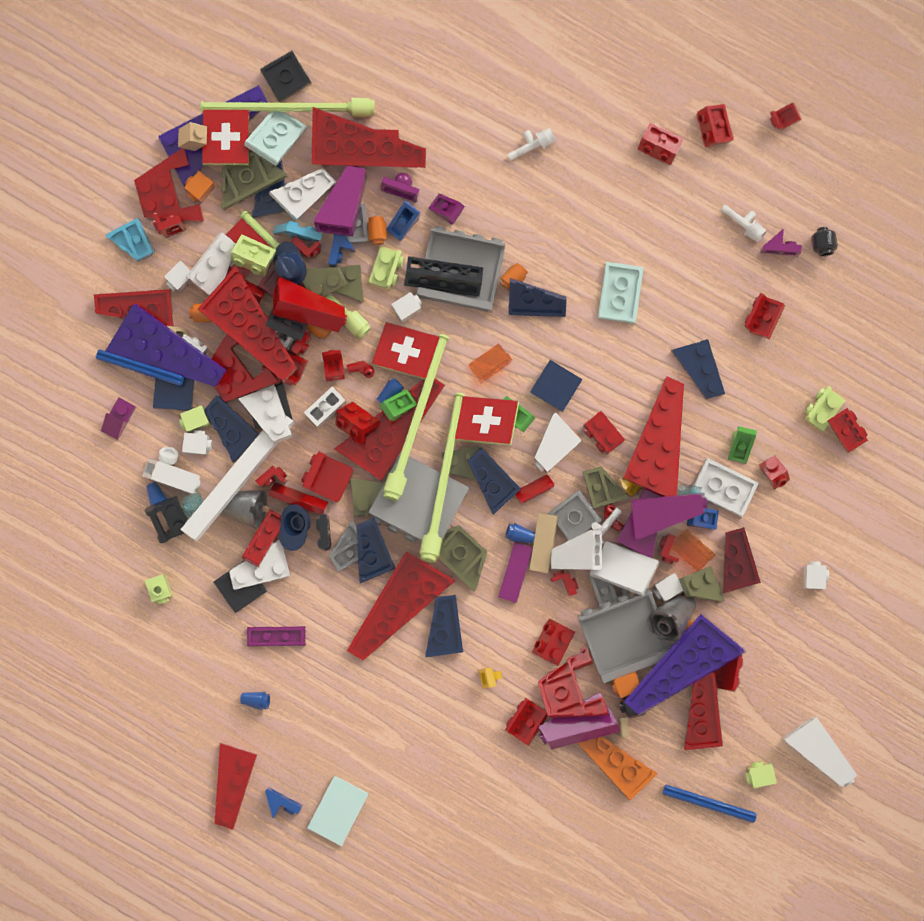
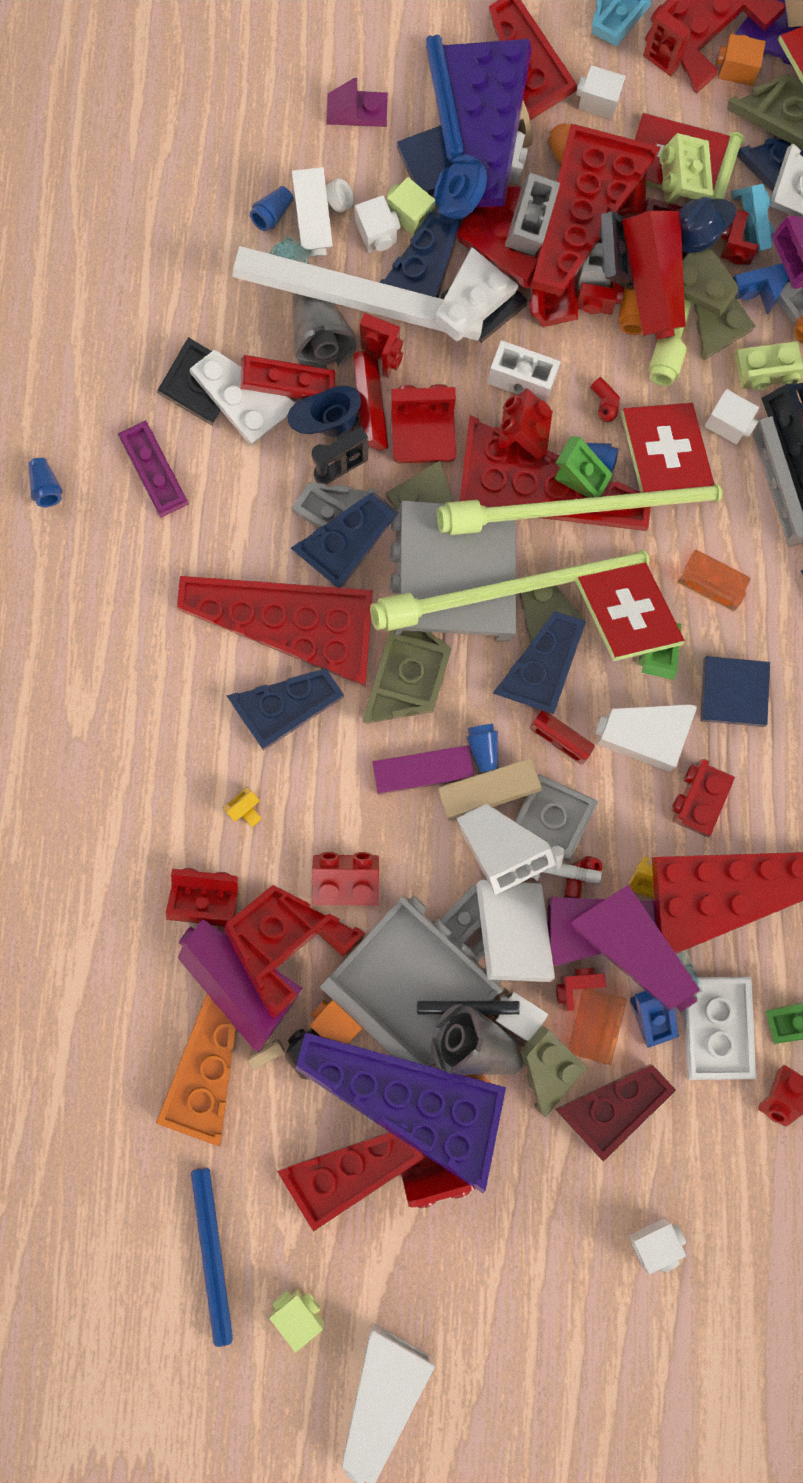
camera: 55 degrees right, 5 degrees down
(159, 589) = (140, 271): yellowish green brick -> none
(173, 515) = (260, 233): black plate -> none
(203, 388) = (460, 187): none -> blue tile
(213, 264) = (645, 119): white wing -> none
(242, 359) = (532, 214): none -> light grey brick
(333, 365) = (591, 357): red bracket -> none
(570, 584) = (448, 861): red bracket -> none
(602, 488) = (619, 837): olive wing -> none
(655, 604) = (483, 1007): none -> black bar

